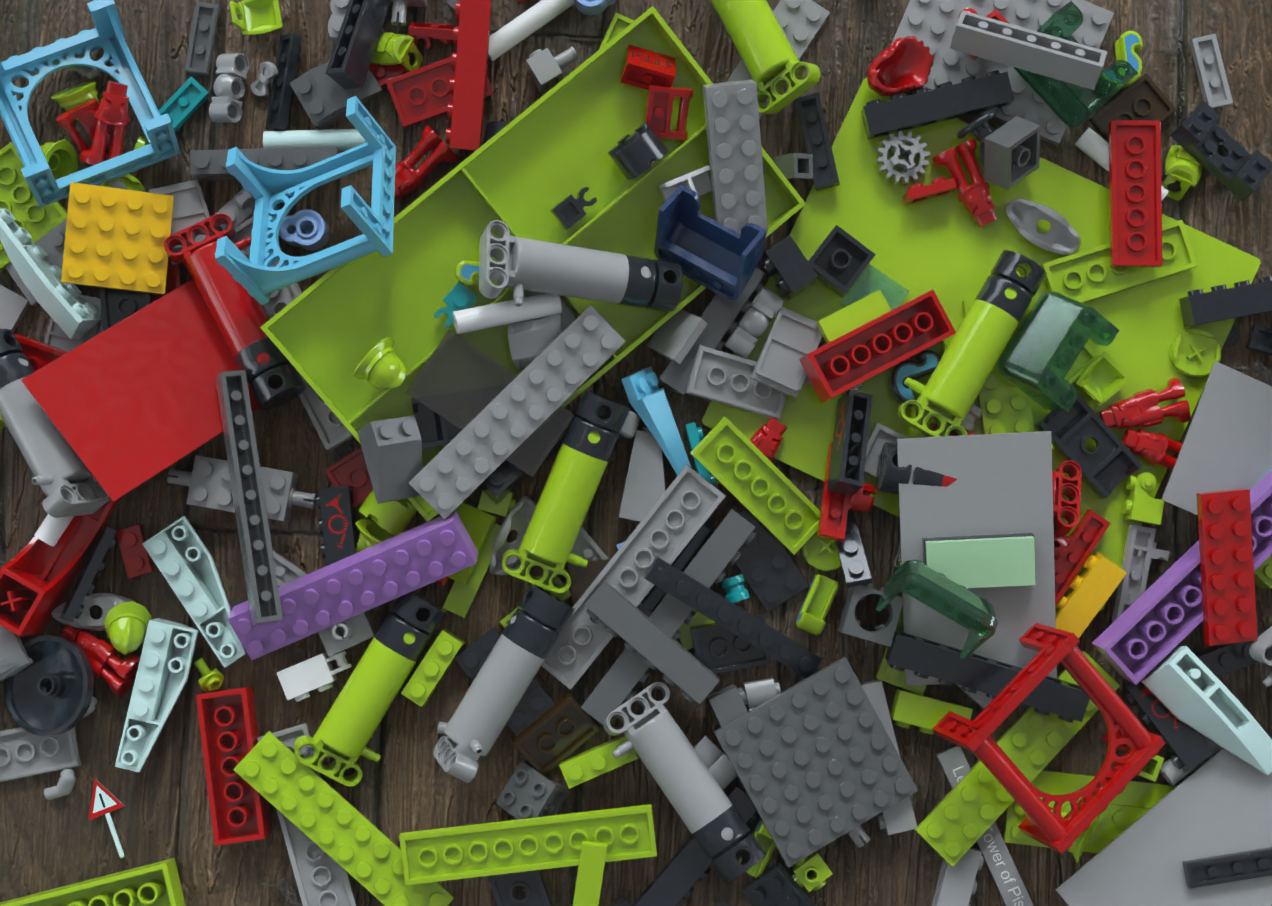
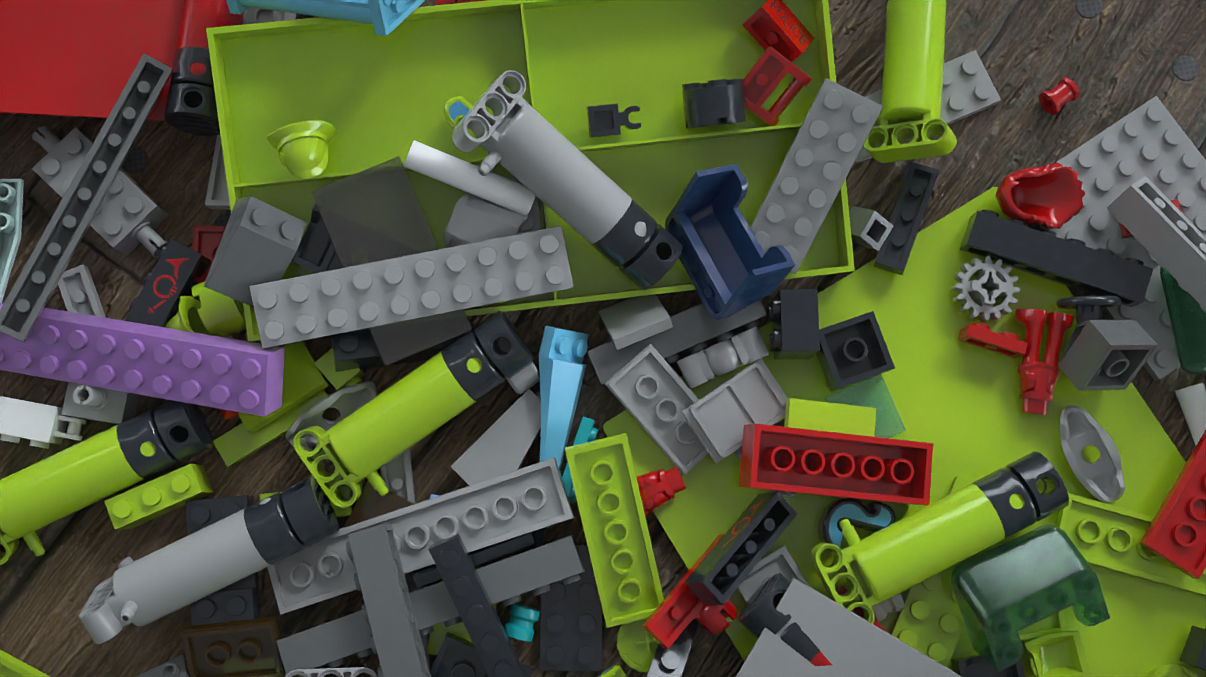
camera: 30 degrees right, 5 degrees down
(457, 299) = (431, 134): teal plate -> none
(696, 181) = (756, 172): white panel -> none

